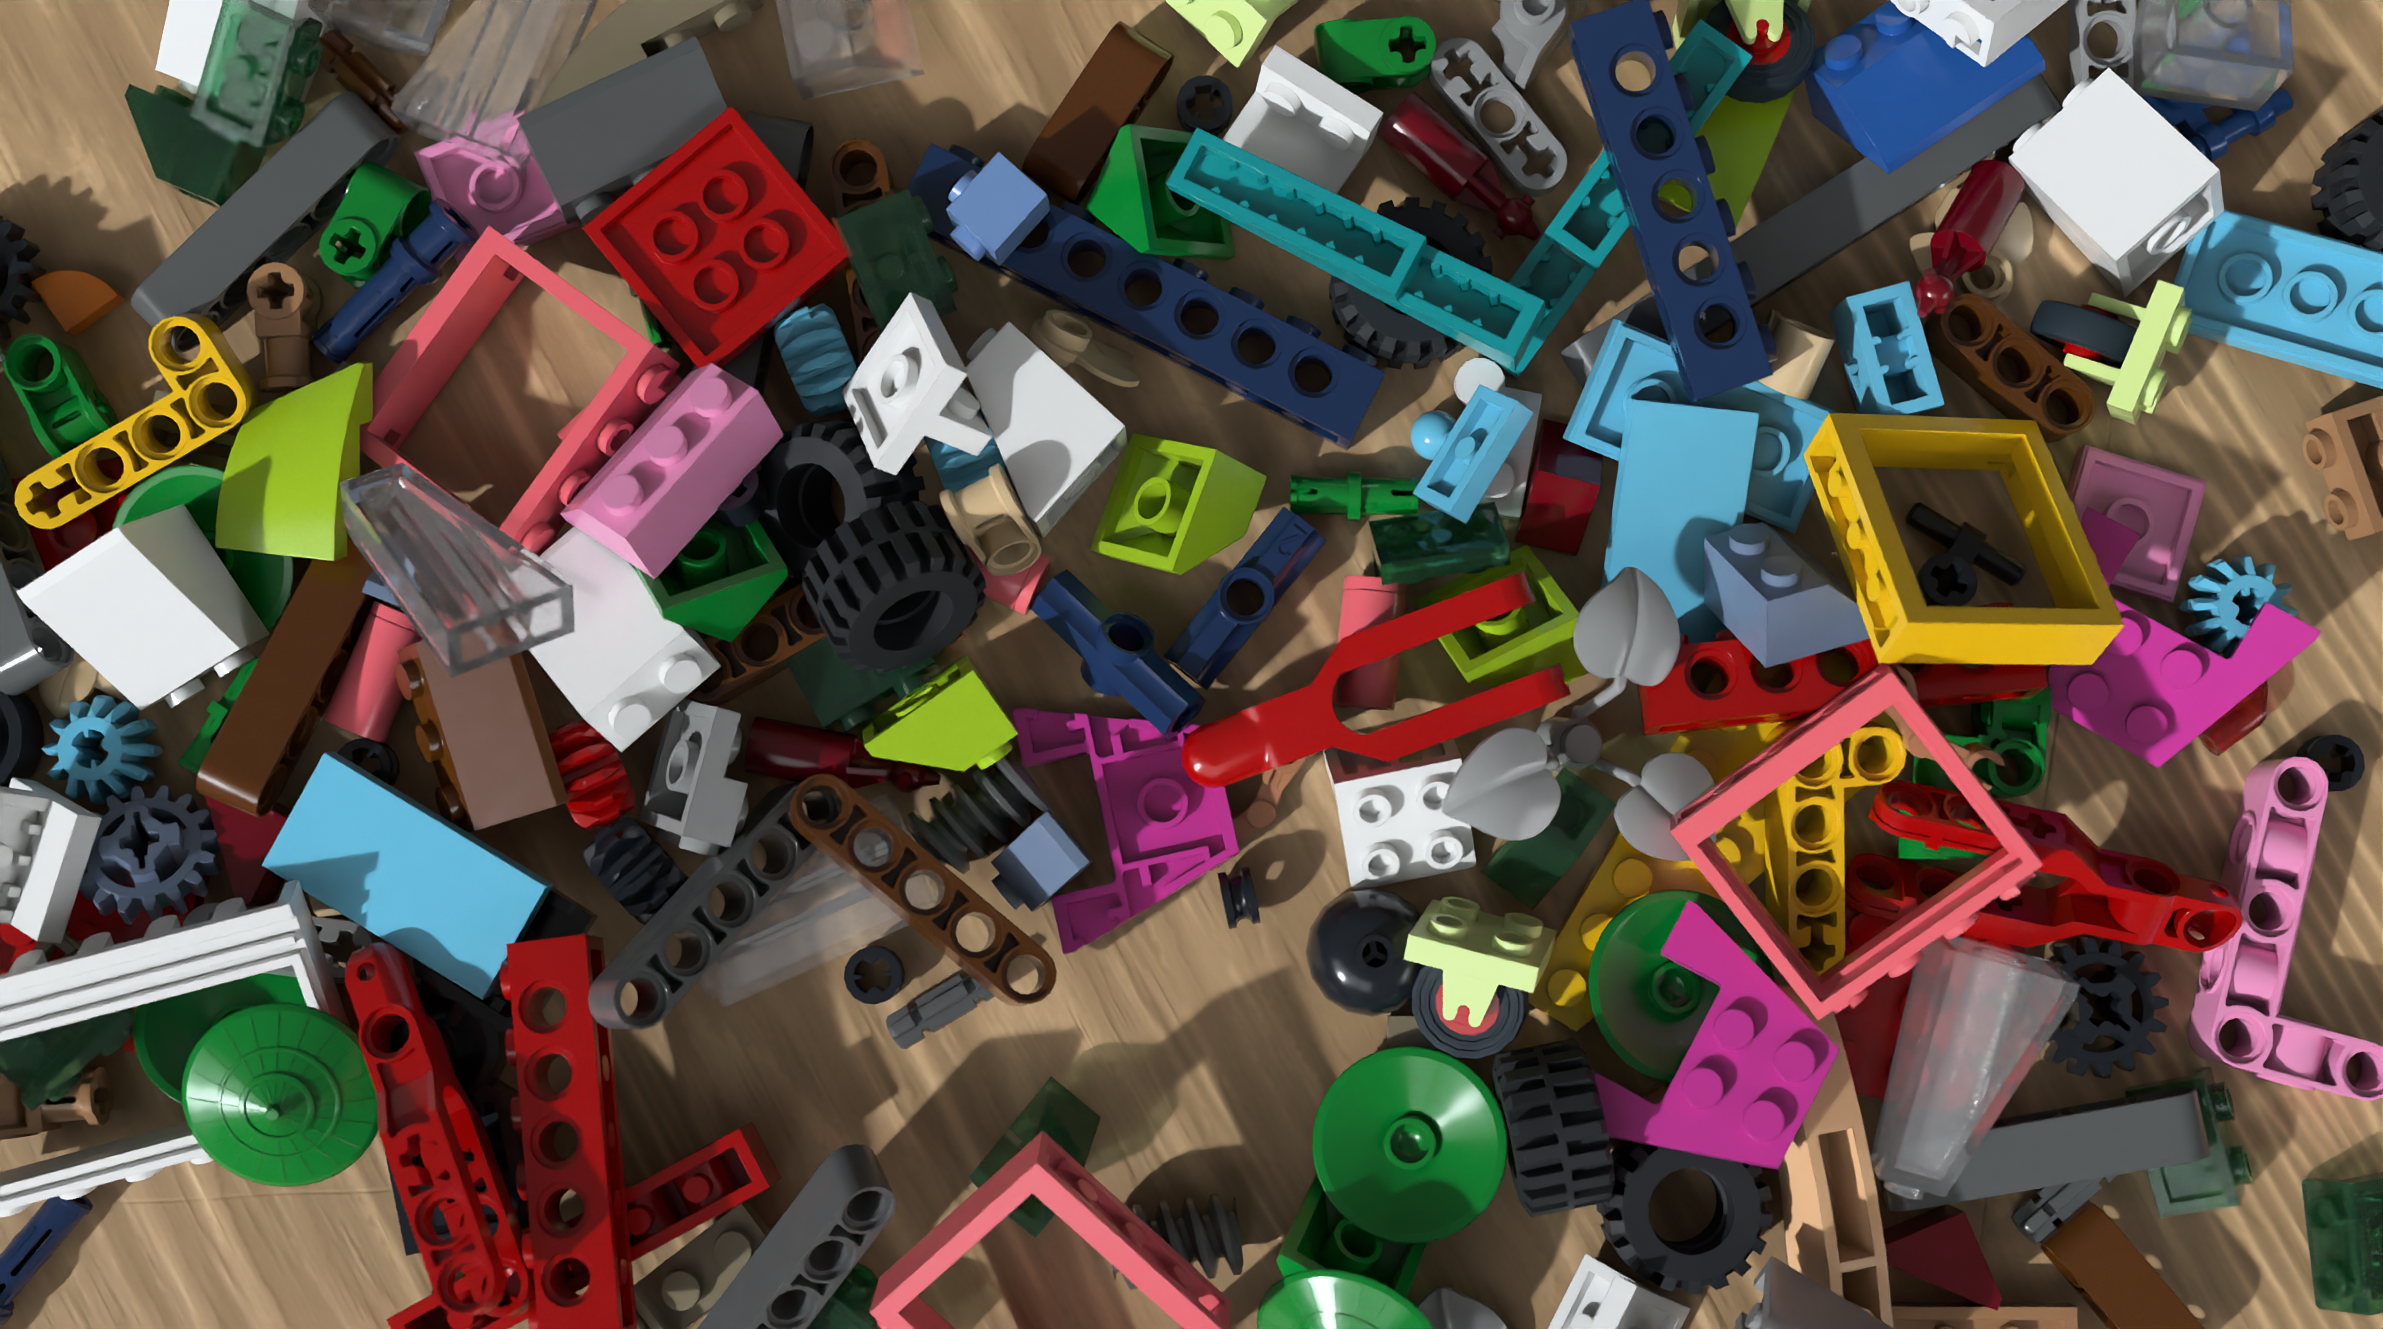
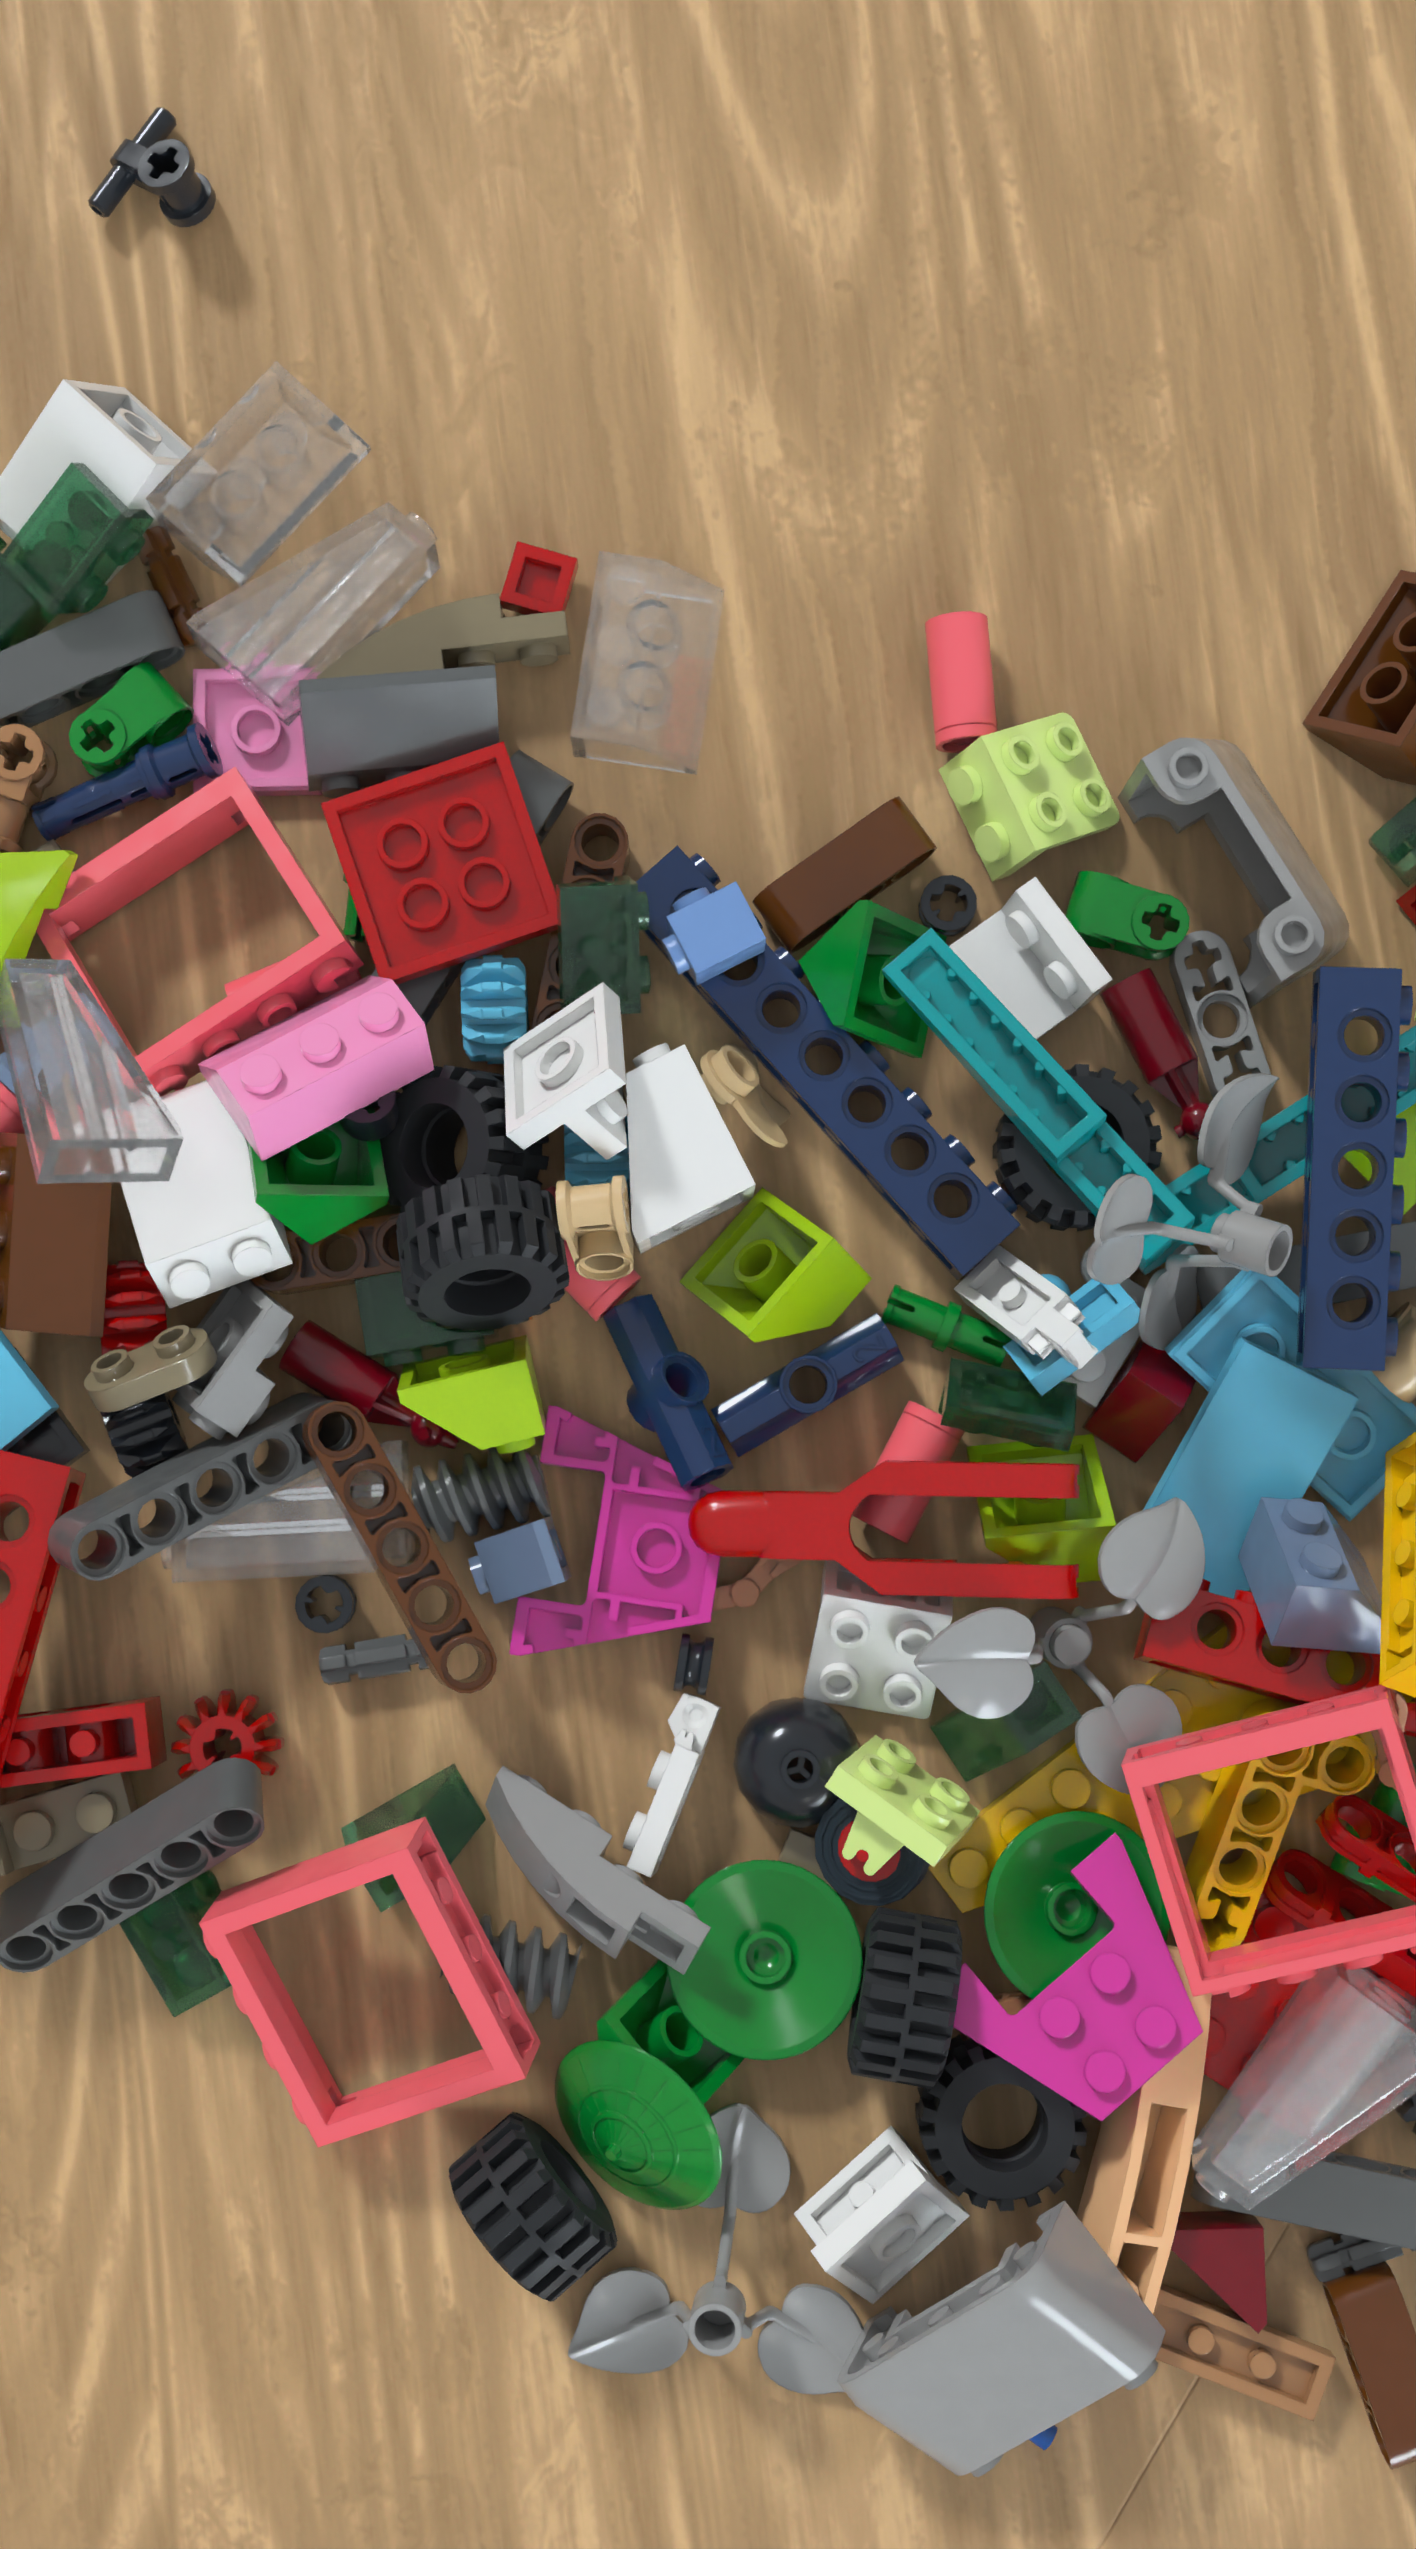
camera: 20 degrees right, 0 degrees up
(638, 803) = (166, 1363): none -> dark tan plate
(814, 1124) = (215, 1722): none -> red gear
(1190, 1127) = (565, 1863): none -> light grey slope
(1260, 1012) = (672, 1778): none -> white hinge
(1420, 447) = (1026, 1307): none -> white hinge
(1593, 302) = (1239, 1238): none -> light grey plant

